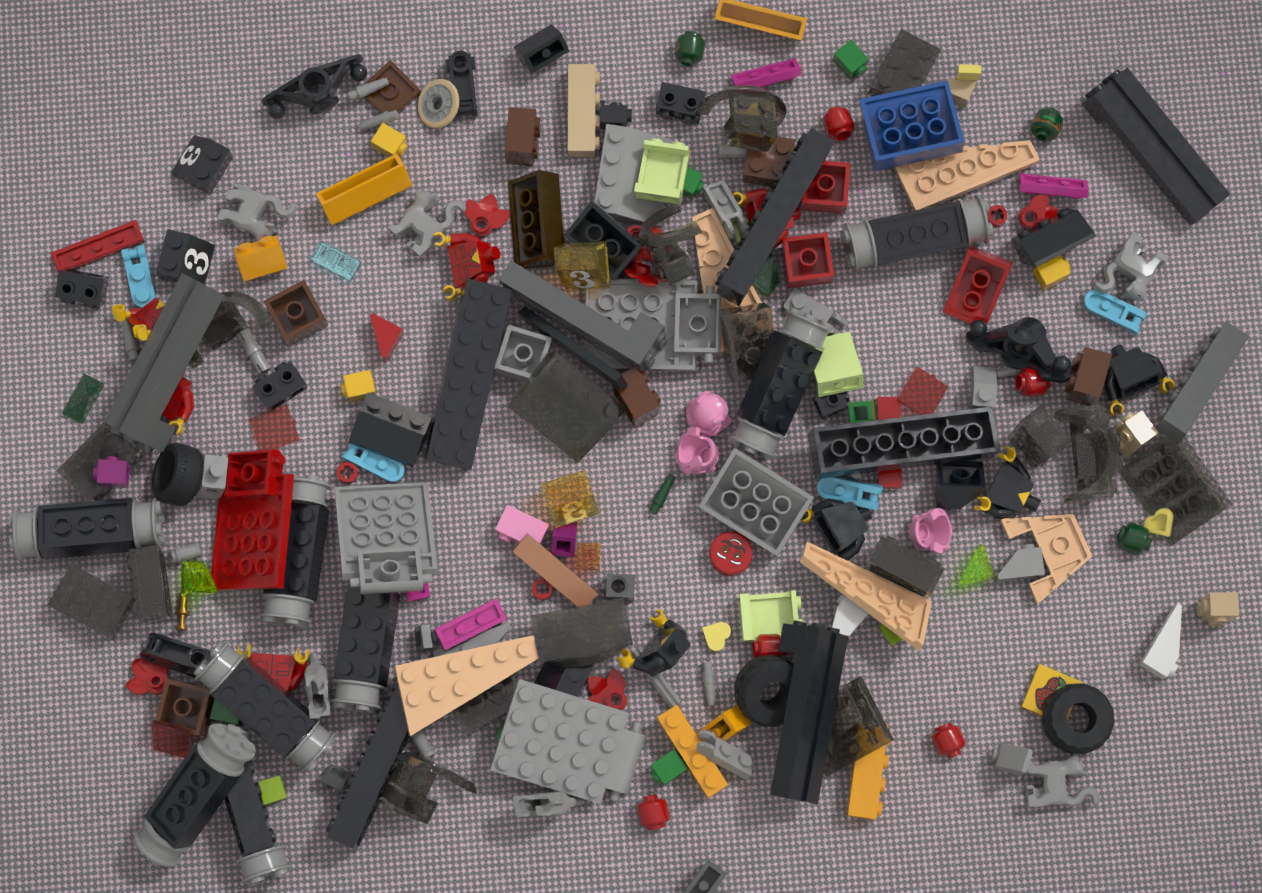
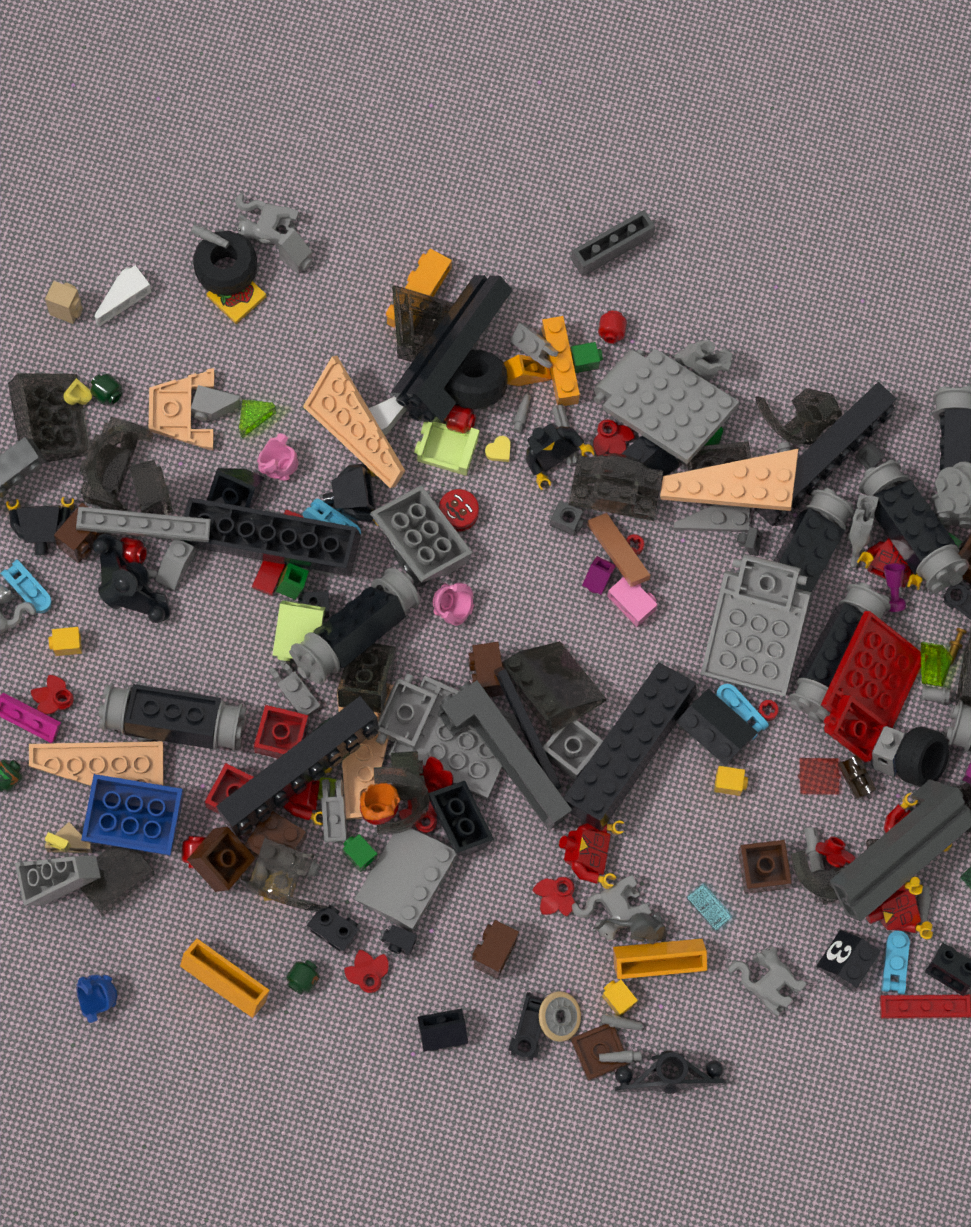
camera: 160 degrees left, 5 degrees down
(203, 163) = (802, 1047): black slope -> none
(232, 353) = (835, 852): none -> red plate
(236, 435) = (856, 777): none -> dark brown hips
(260, 257) = (779, 931): light orange brick -> none
(266, 648) = (894, 577): none -> magenta piece
(272, 790) = (927, 469): lime tile -> none
(279, 386) = (802, 808): black brick -> none
(387, 335) = (688, 817): red slope -> none
(393, 209) = (642, 927): none -> dark grey animal
(470, 624) = (708, 536): dark pink plate -> none
(535, 218) = (511, 869): dark brown slope -> none
(569, 499) = (581, 605): clear yellow slope -> none
(581, 110) = (427, 958): tan brick -> none
(582, 265) = (487, 805): clear yellow slope -> none
(588, 556) = (584, 551): clear orange brick -> none
(634, 83) = (366, 968): none -> red plate
(661, 495) = (498, 584): dark green animal -> none
(662, 171) = (380, 860): yellowish green panel -> none
(682, 216) = (379, 803): none -> orange hair
(708, 413) = (429, 636): bright pink helmet -> none
(768, 74) = (242, 924): dark pink plate -> none
(810, 111) = (221, 859): none -> reddish brown brick
(851, 60) = (157, 907): green brick -> none
(904, 567) = (315, 436): clear smoke brick -> none
(922, 392) = (230, 582): clear red piece -> none
(948, 740) = (340, 290): red head -> none
(956, 40) = (53, 878): none -> light grey wedge
(977, 286) = (137, 654): red slope -> none
(999, 222) = (90, 705): red bush -> none
(1009, 489) = (195, 468): black torso -> none
(1030, 398) = (143, 524): none -> light grey tile
(1052, 237) = (52, 664): black slope -> none
(1112, 733) = (210, 236): none -> light grey animal
(1134, 432) = (65, 469): tan brick -> none

